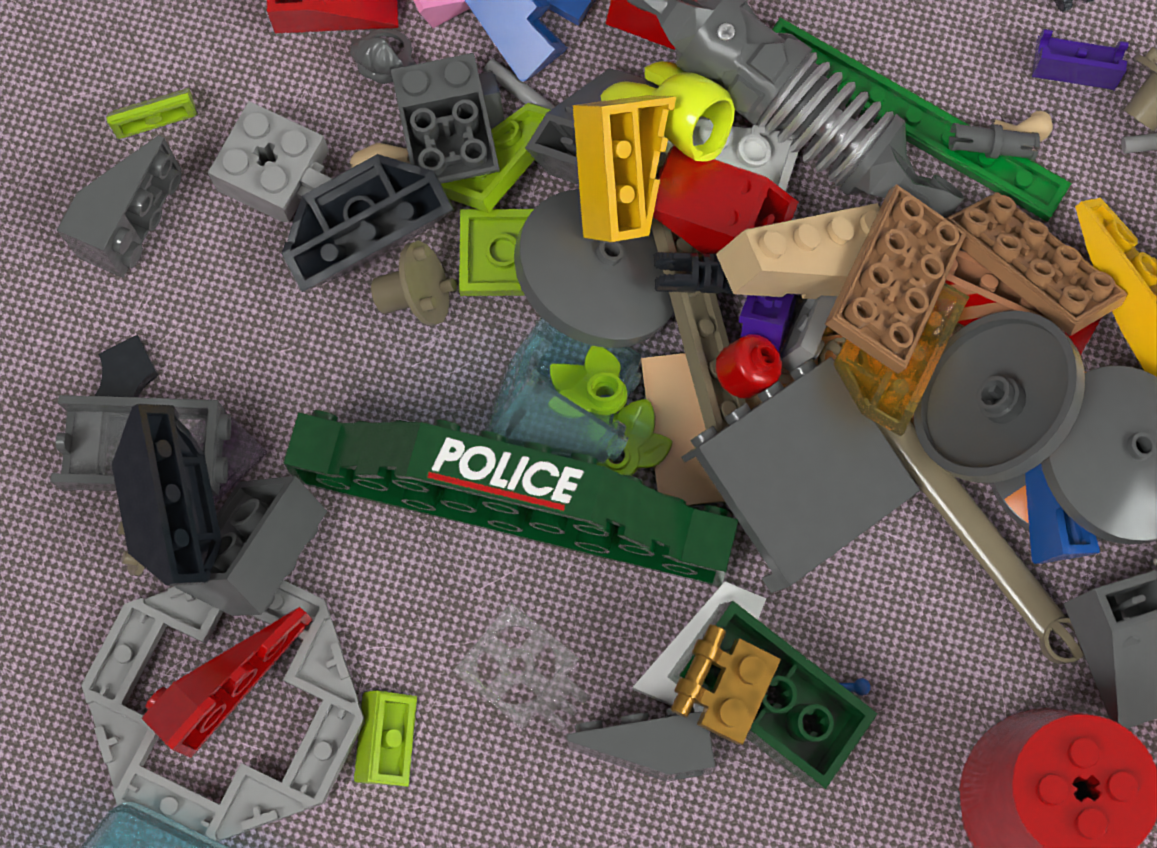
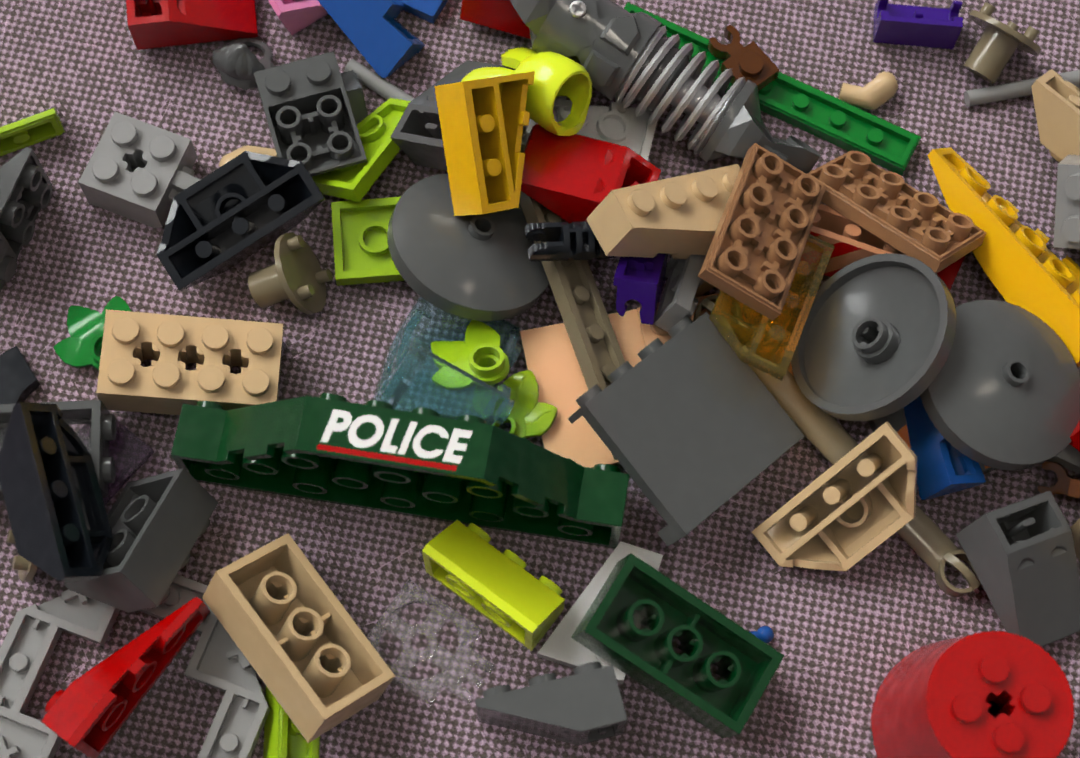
camera: 10 degrees left, 5 degrees down
(216, 326) = (86, 334): none -> green plate
(300, 343) = (172, 345): none -> tan brick
(396, 653) = (297, 636): none -> tan brick
(595, 613) = (493, 582): none -> neon yellow slope
(737, 691) = (643, 641): pearl gold plate -> none
(746, 368) = (626, 327): red head -> none
(894, 92) = (744, 61): none -> reddish brown plate
(954, 568) = (846, 507): none -> tan wedge
(994, 141) = (843, 101): dark grey pin -> none

